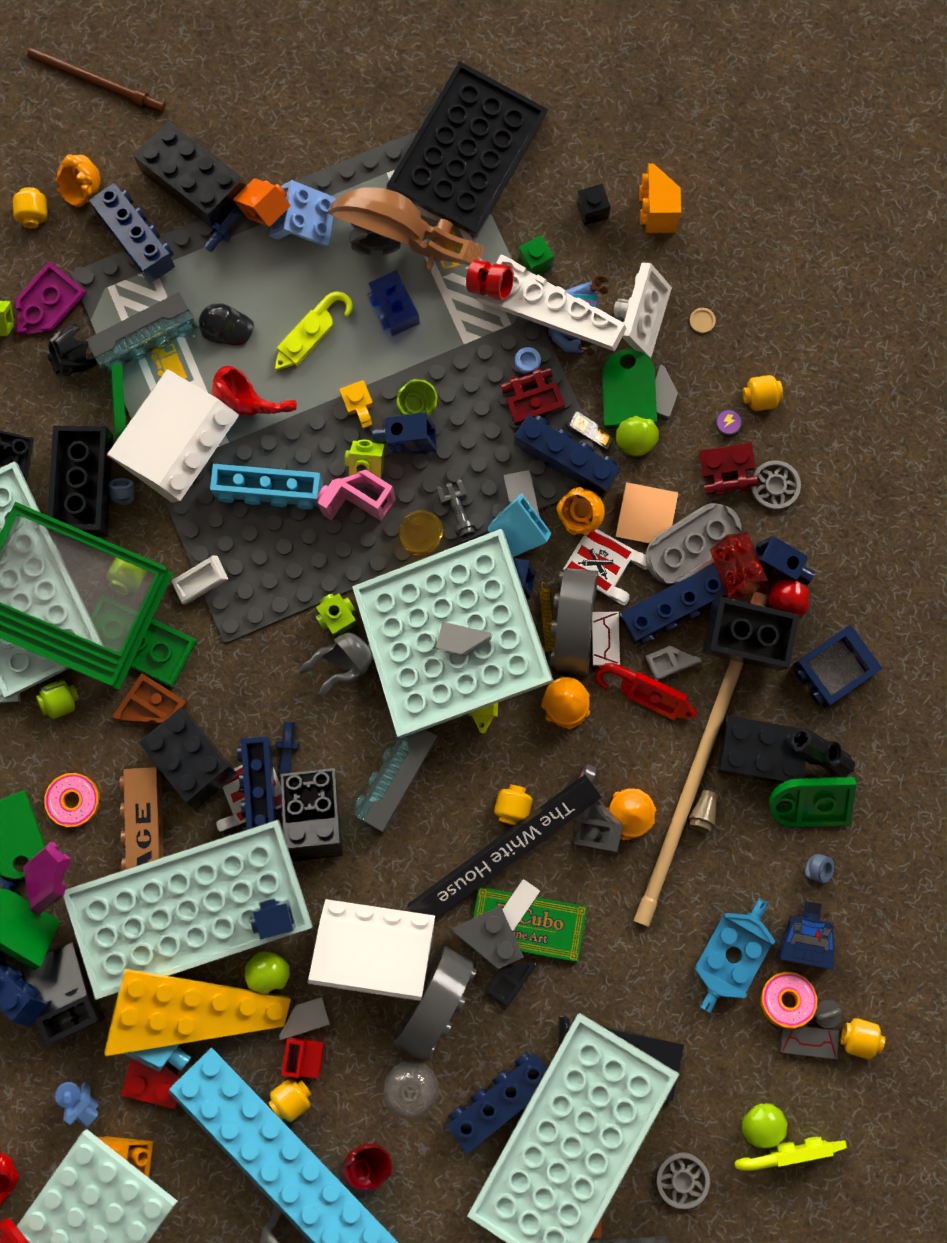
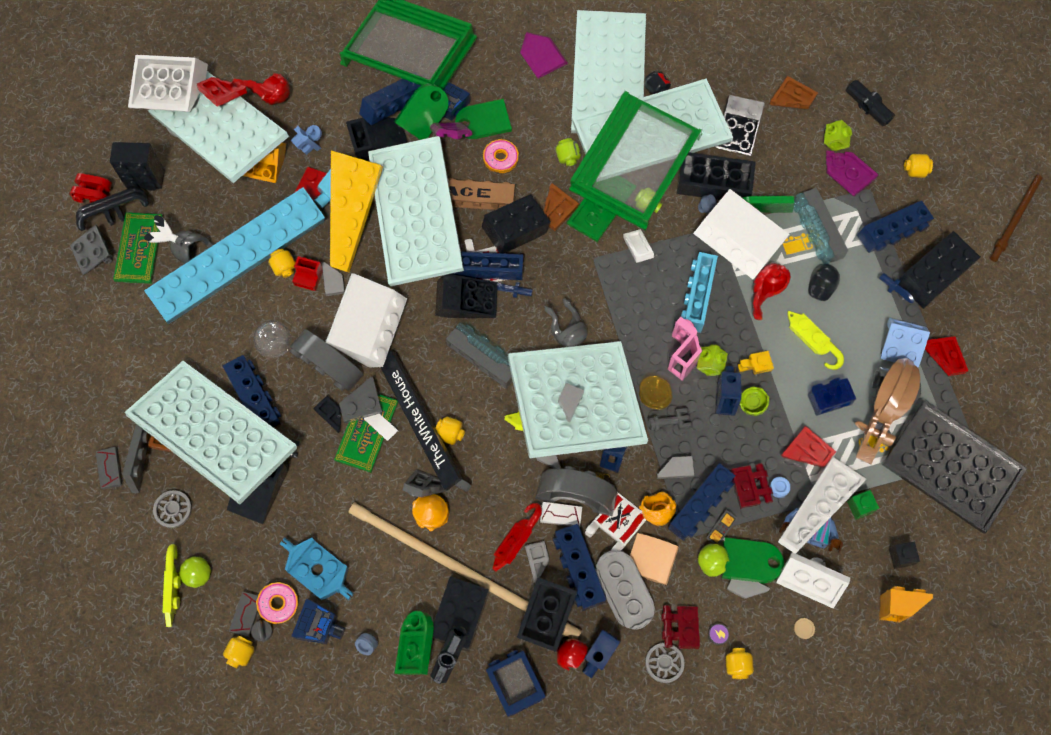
camera: 95 degrees right, 10 degrees down
(69, 351) = (808, 179): black helmet -> none
(78, 179) = (938, 197): light orange hair -> none
(262, 202) = (914, 311): orange brick -> none
(266, 972) = (366, 258): lime hair -> none
(272, 919) = (397, 257): dark blue brick -> none
(313, 160) = (947, 355): none -> red wing
(342, 621) = (602, 329): lime brick -> none
(367, 1167) = (228, 303): dark red hair -> none
(470, 328) = (809, 449): none -> red wing
(489, 279) = (844, 463): red wheel -> none
(521, 526) = (650, 460): medium azure torso -> none
(566, 702) = (517, 478): light orange hair -> none
(704, 813) = (423, 565): dark tan cone -> none
(738, 564) = (602, 615): clear red brick -> none

